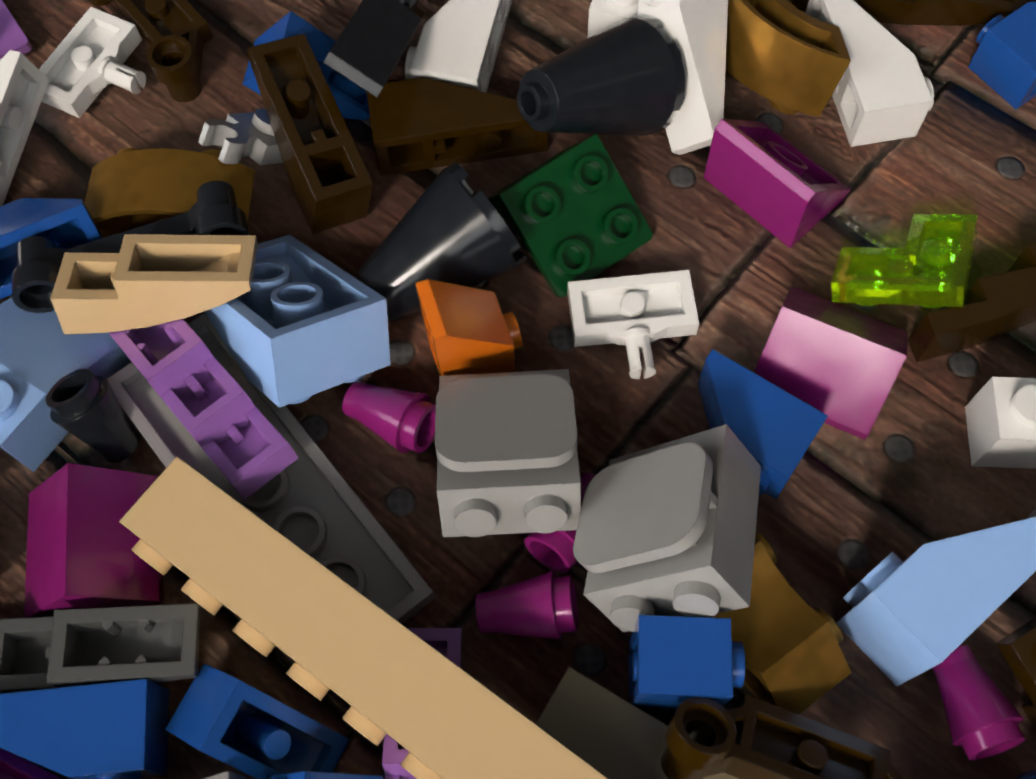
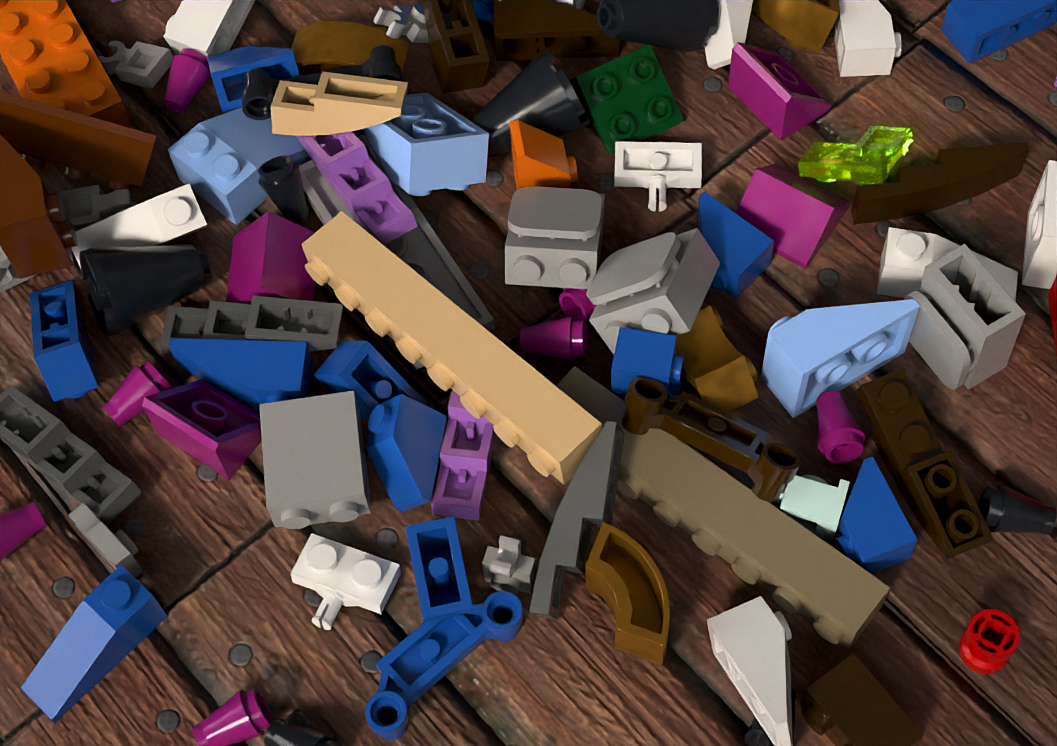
camera: 10 degrees right, 5 degrees down
(395, 415) = (482, 213): magenta cone -> none

